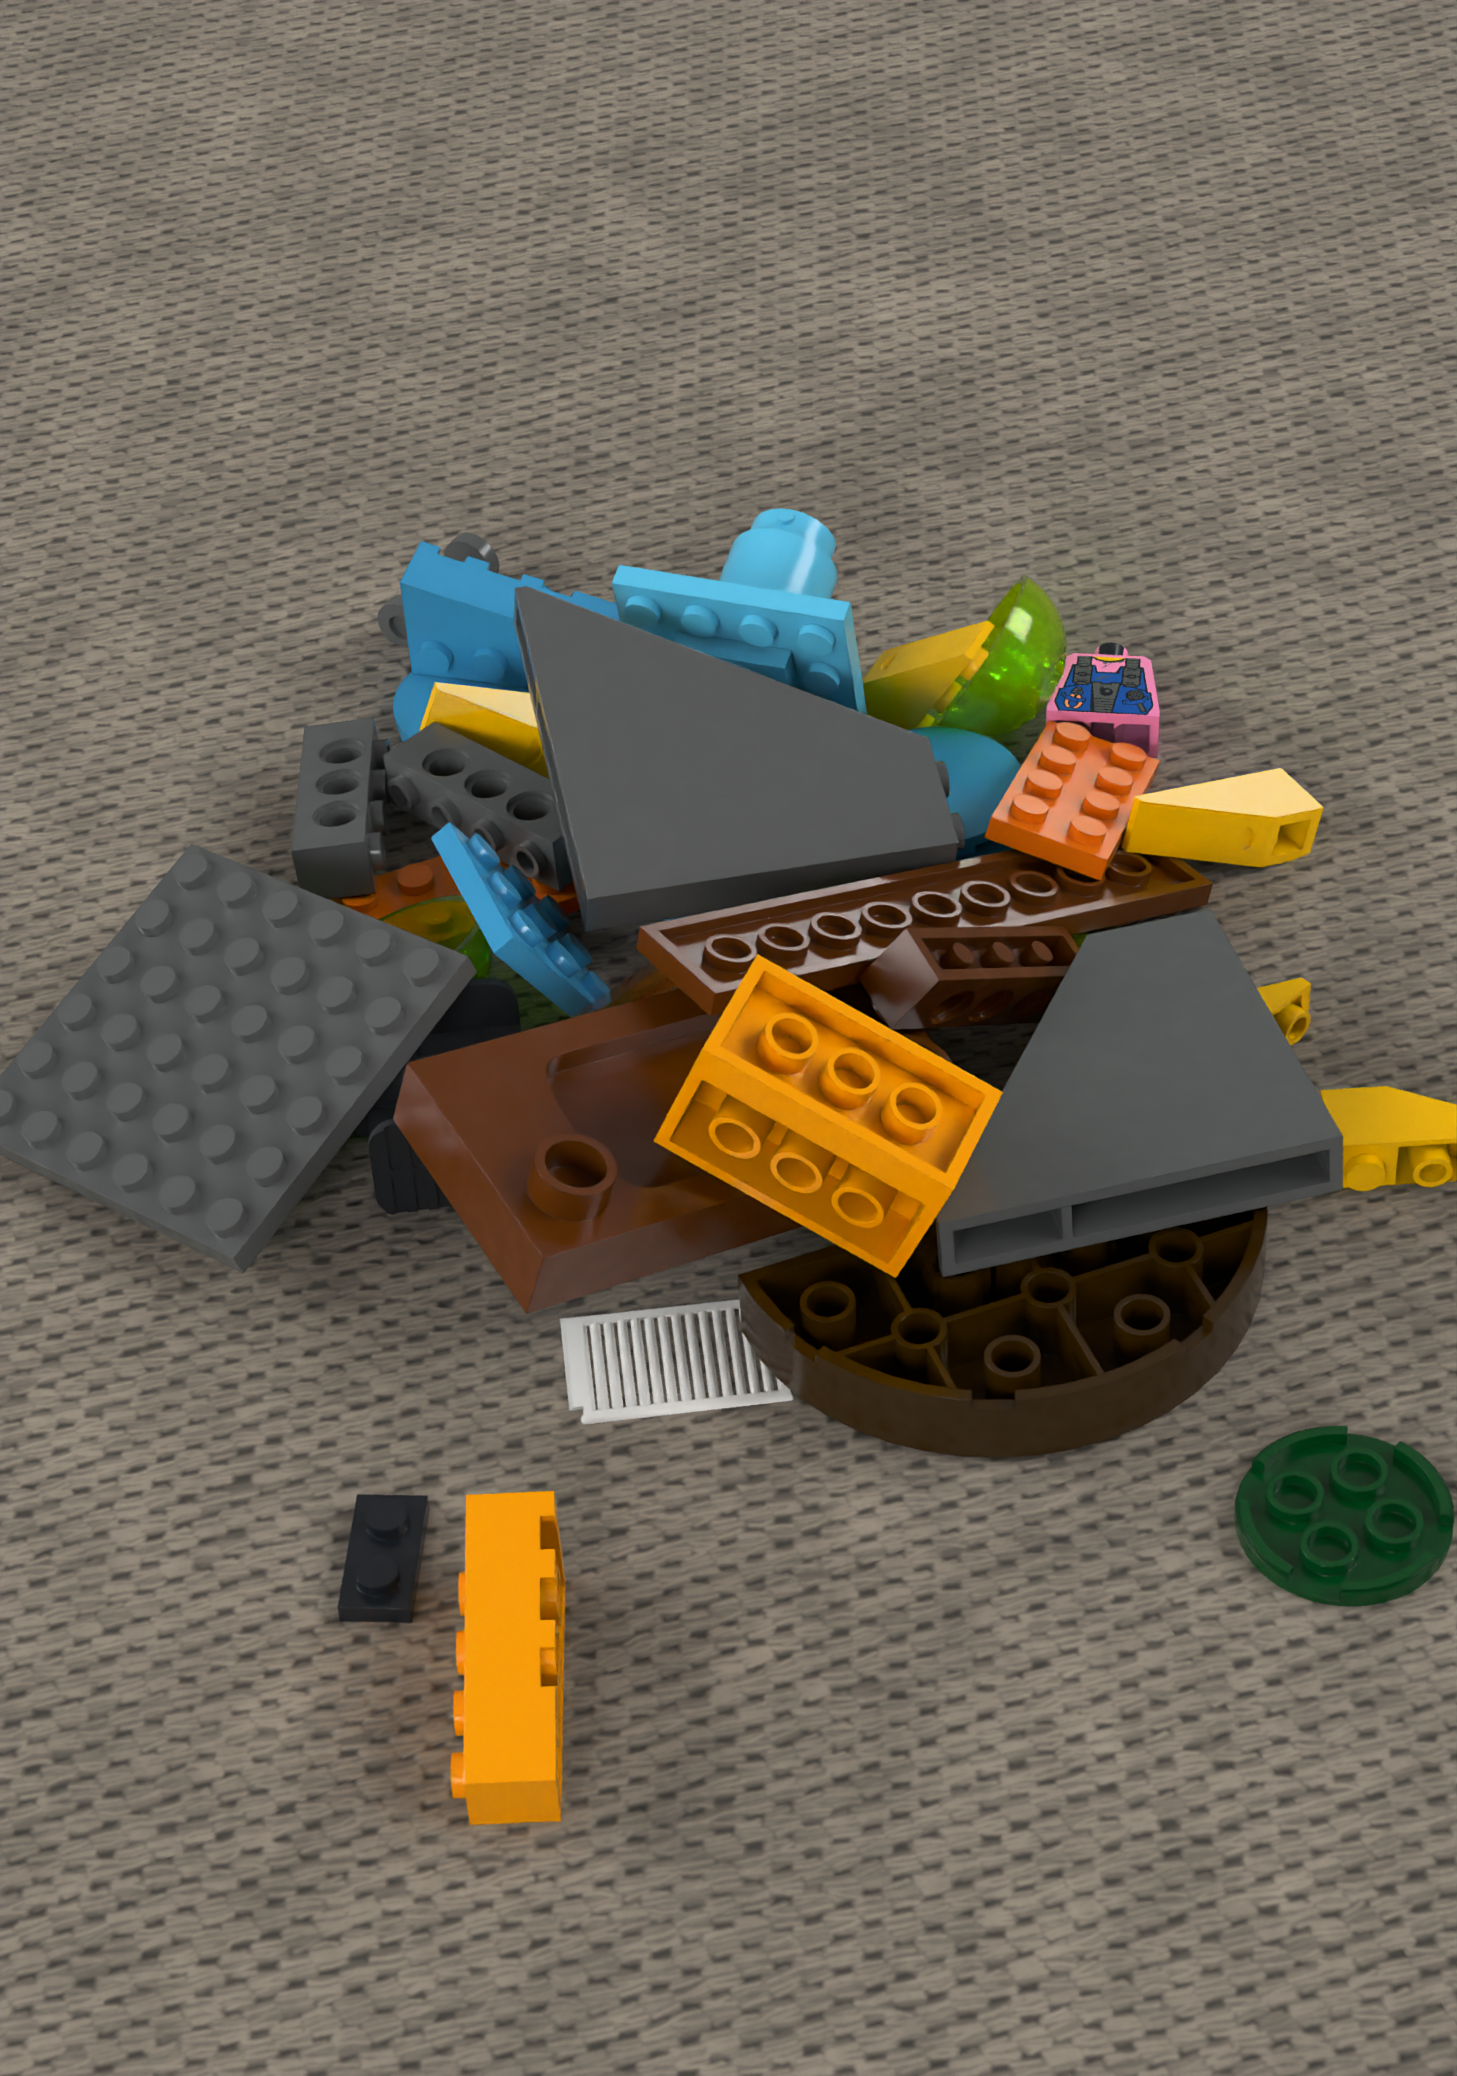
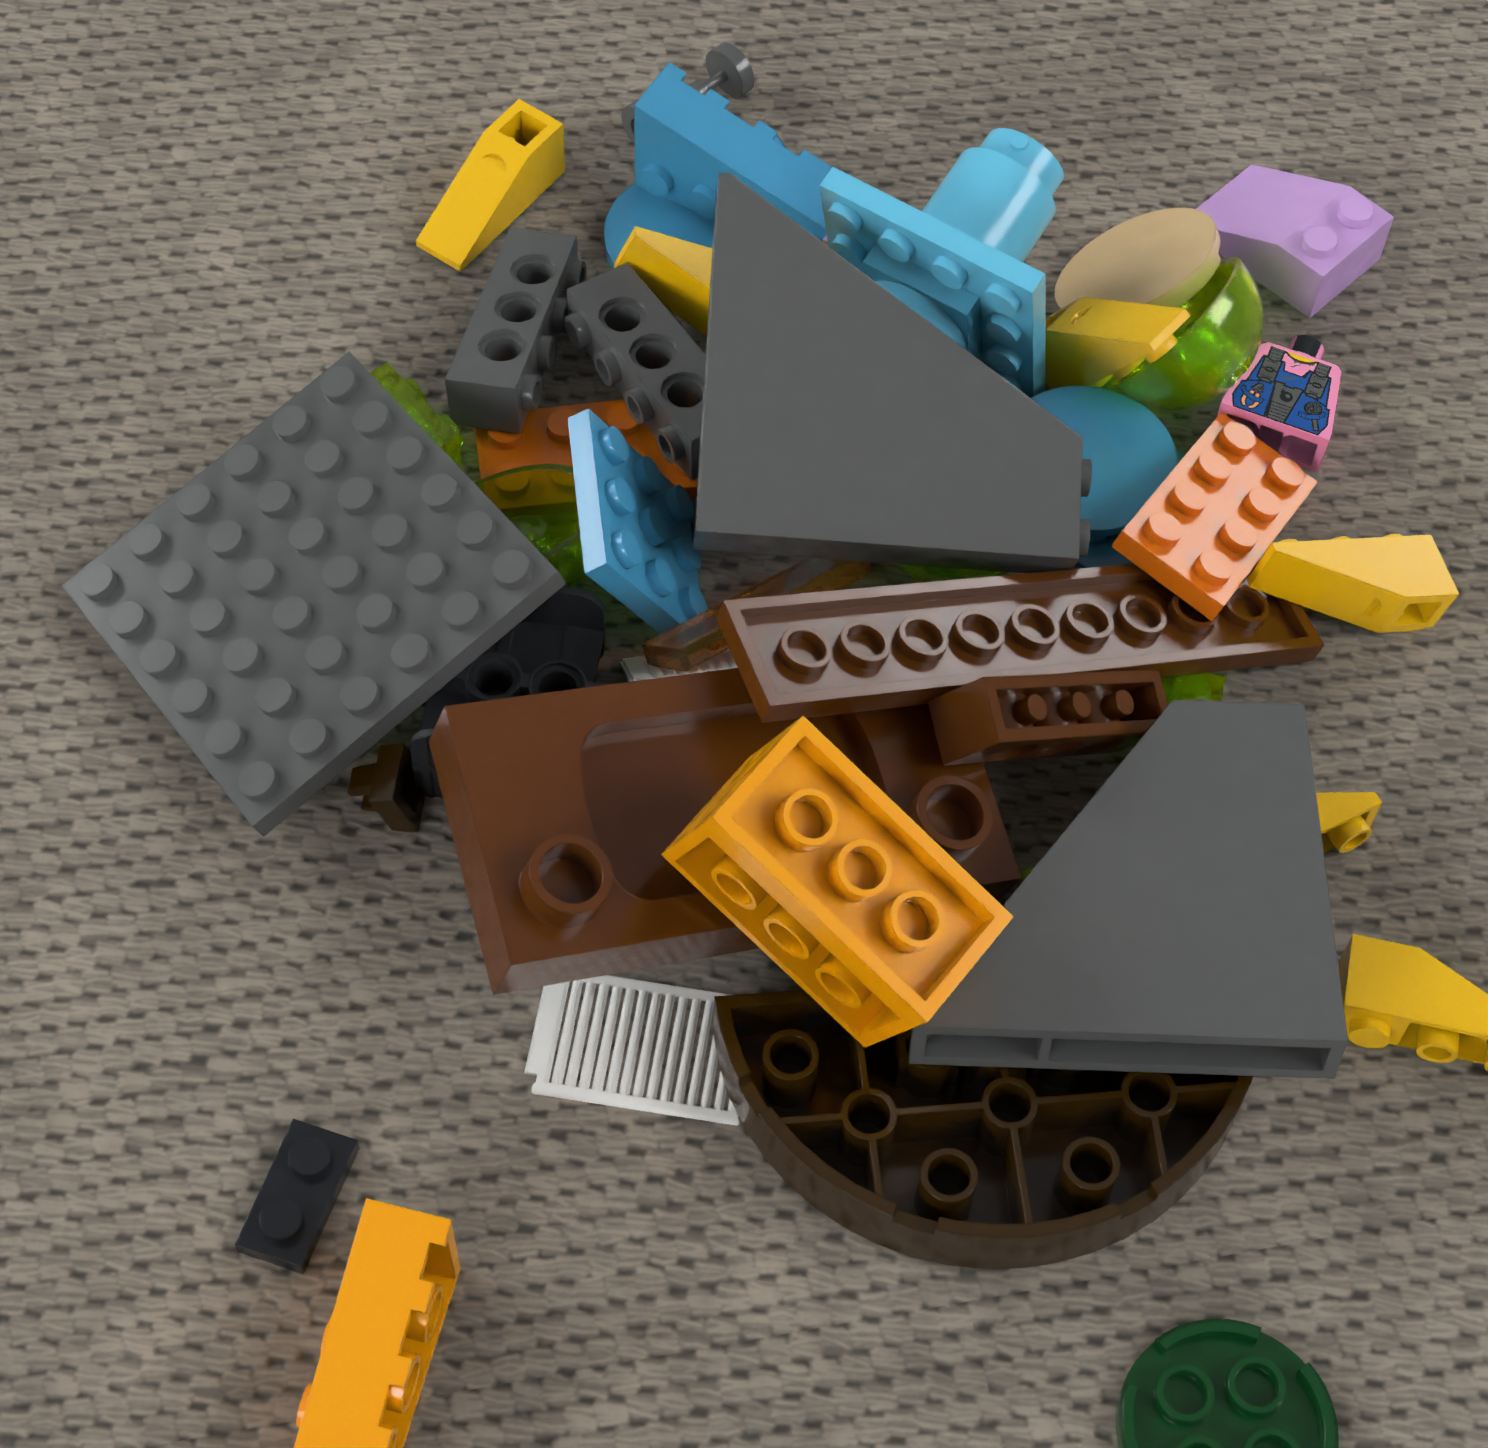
camera: 10 degrees right, 15 degrees up
(275, 699) = (496, 184): none -> yellow slope
(352, 1207) = (390, 788): none -> dark brown tile
(937, 604) = (1145, 260): none -> tan tile
(1084, 563) = (1298, 233): none -> lavender slope

